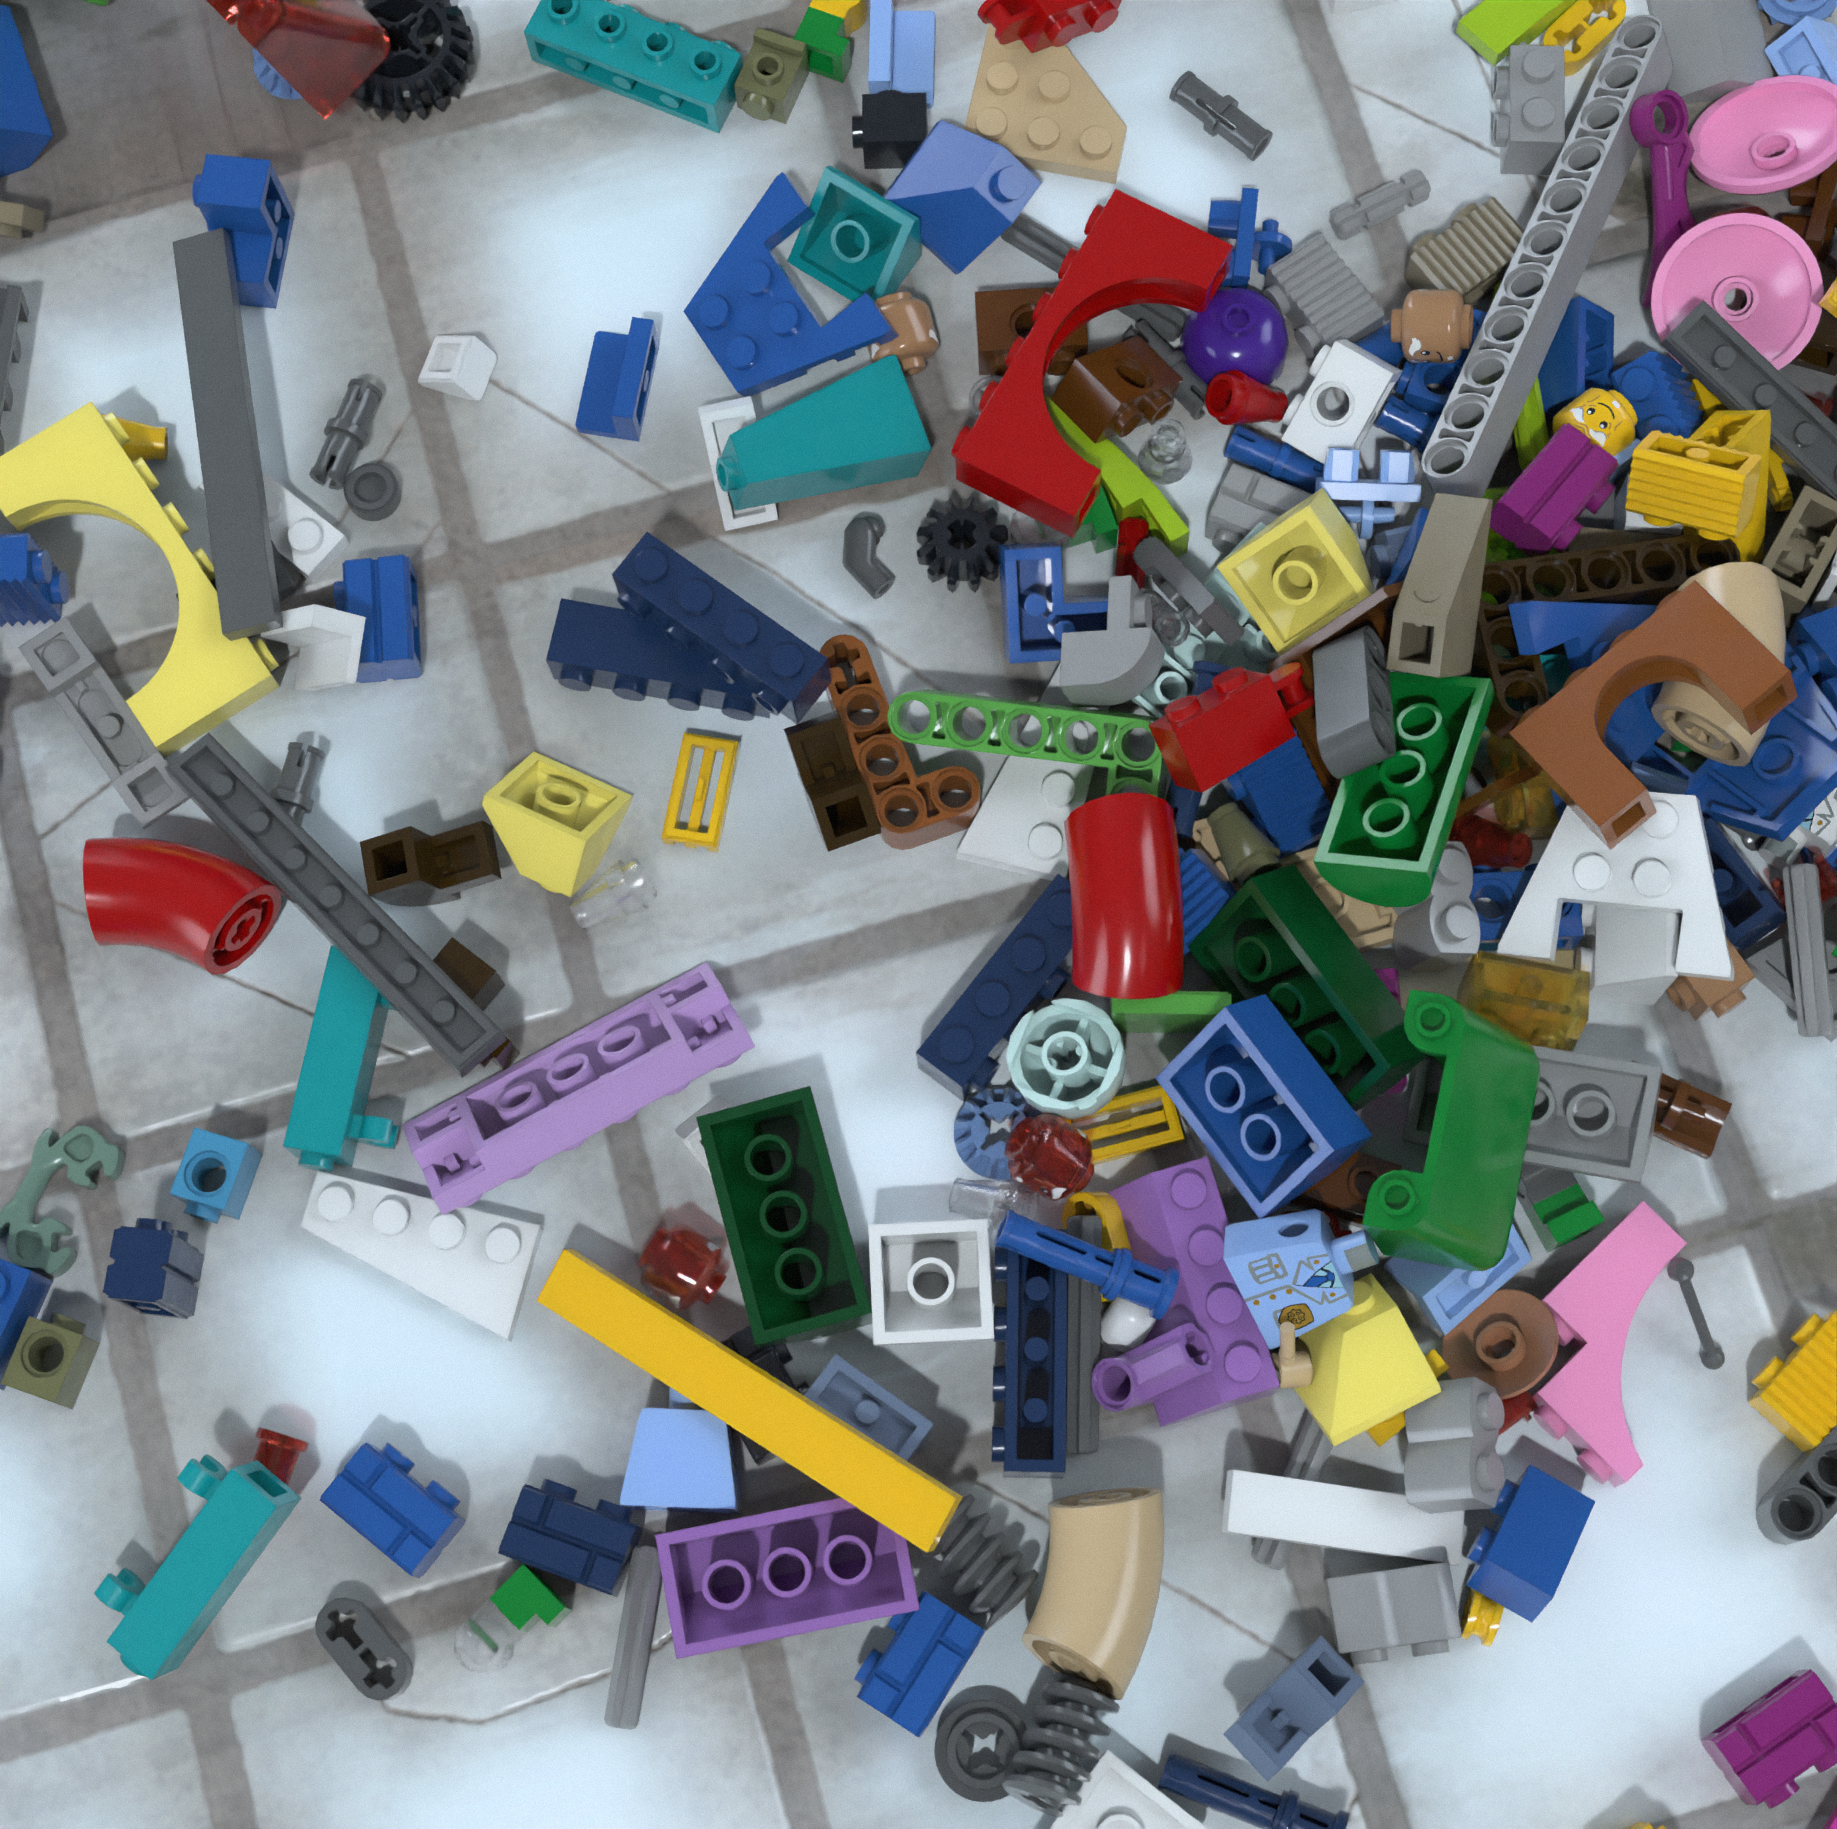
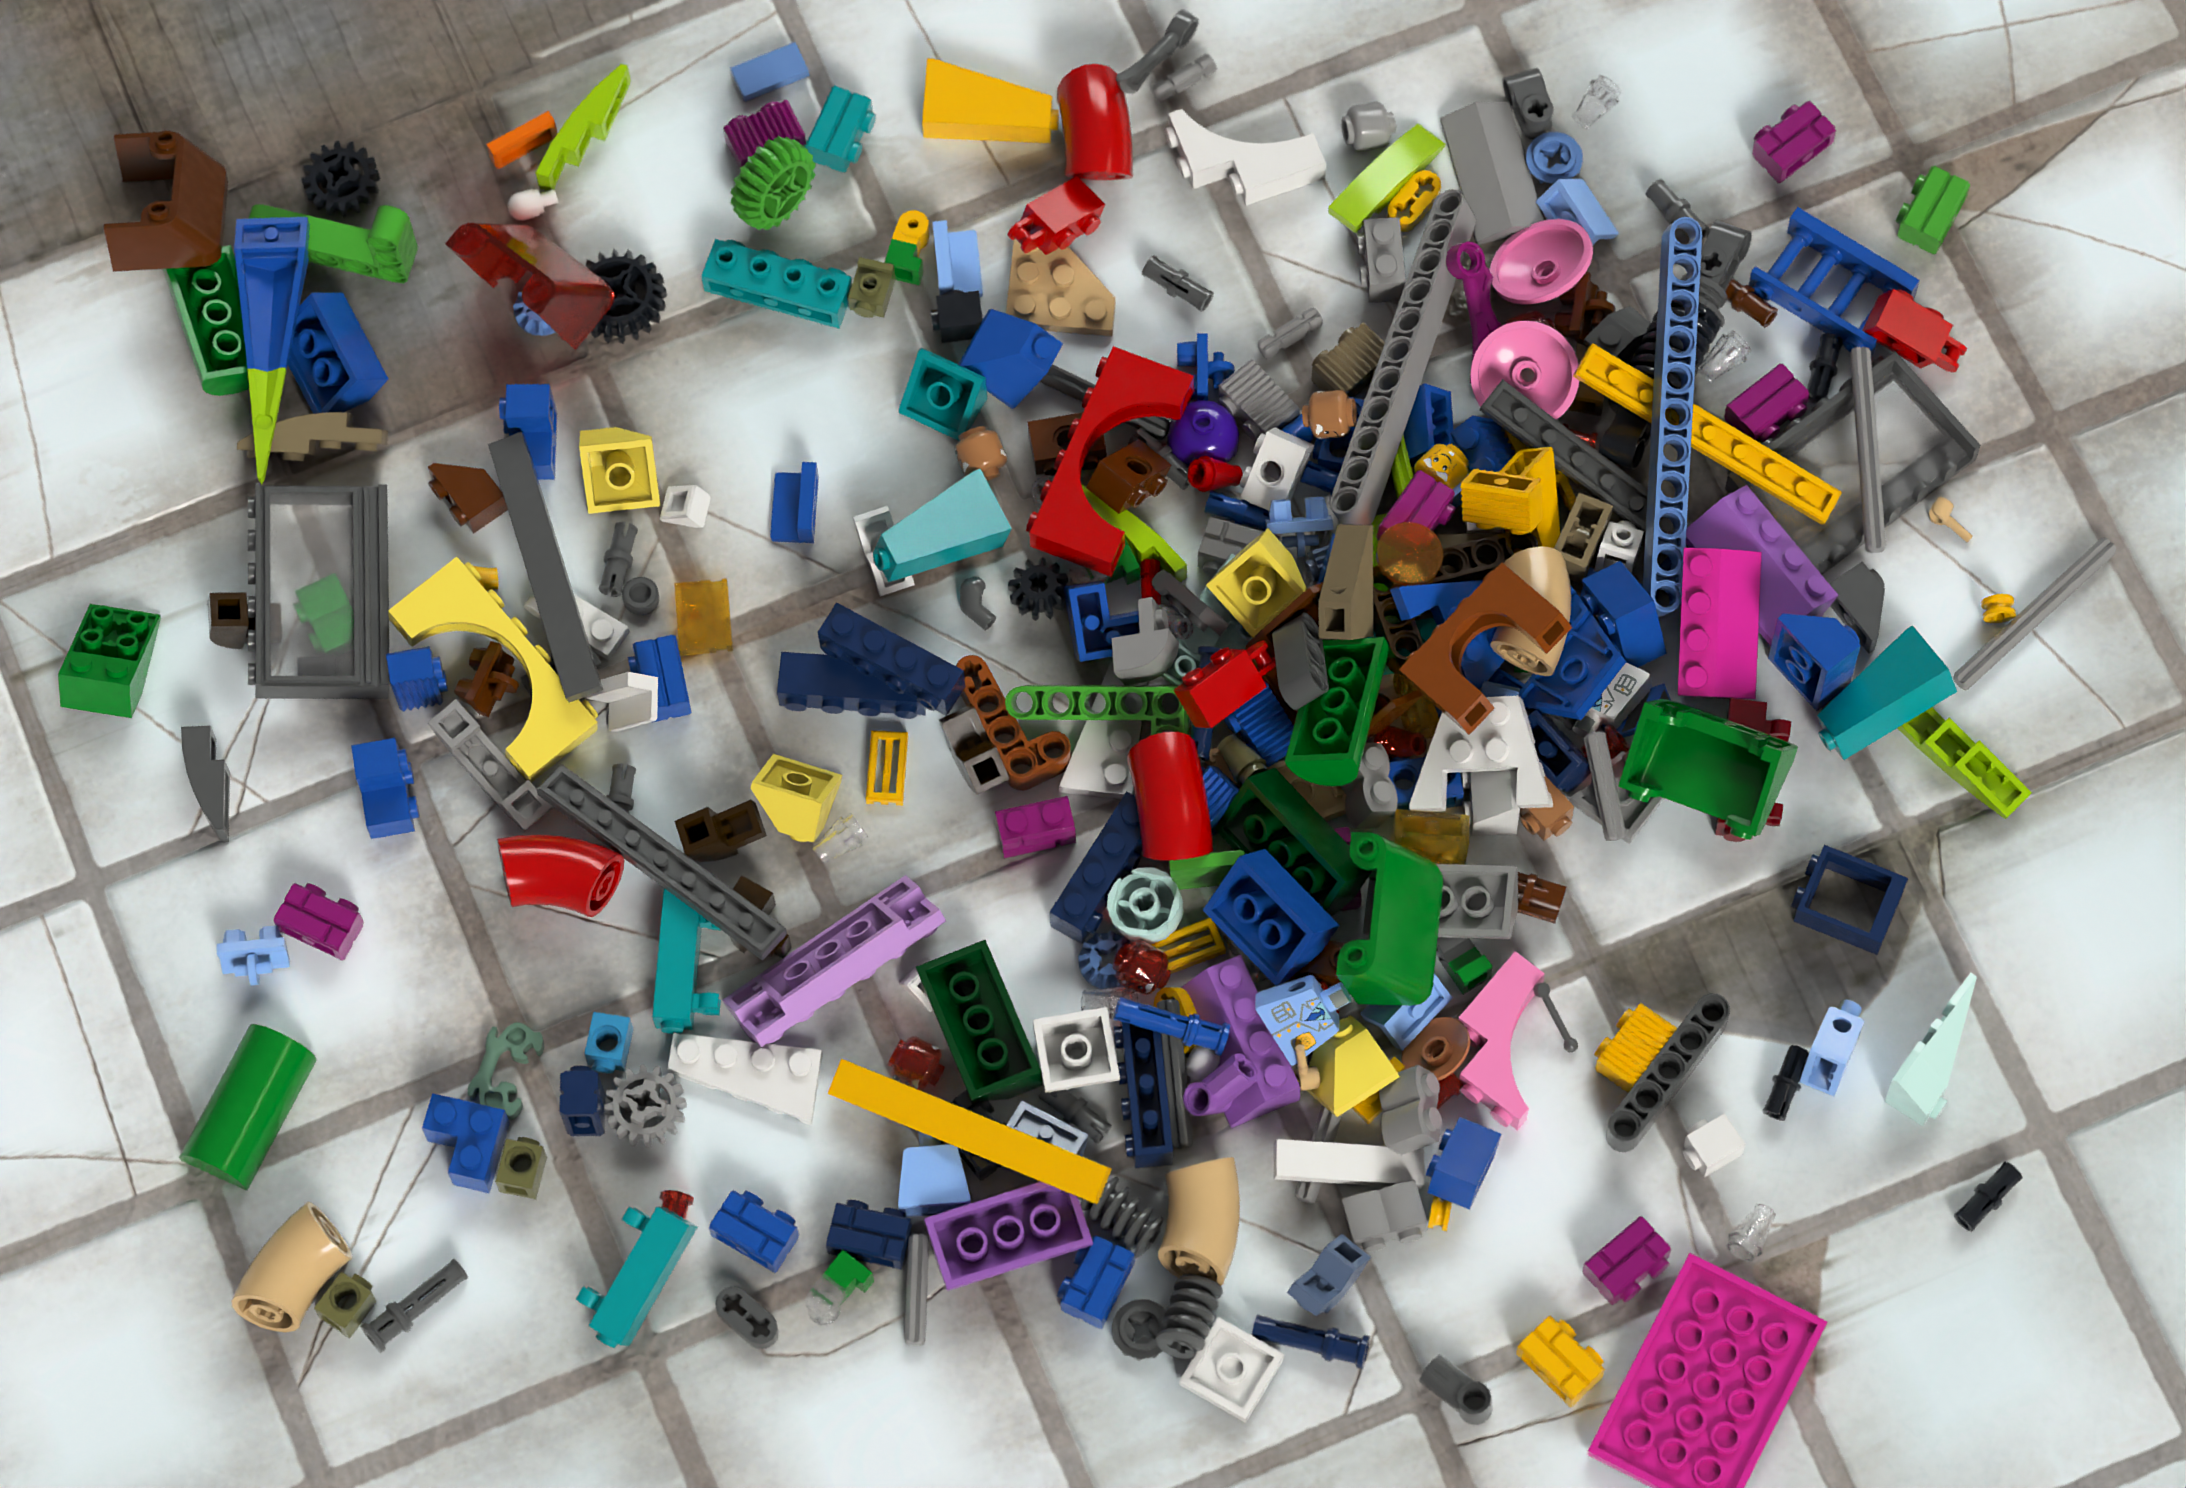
camera: 10 degrees left, 5 degrees down
(127, 592) = (491, 679): none -> reddish brown hips
(142, 310) = (470, 492): none -> reddish brown slope
(247, 1305) = (641, 1120): none -> light grey gear
(362, 302) = (618, 470): none -> light yellow slope
(459, 533) = (703, 617): none -> clear yellow plate
(756, 315) = (883, 451): blue wing -> none
(912, 911) = (1035, 827): none -> magenta brick
(925, 1380) = (1076, 1113): none -> dark grey pin
(1165, 453) = (1165, 514): clear cone -> none
(1542, 551) = (1409, 554): none -> clear orange piece

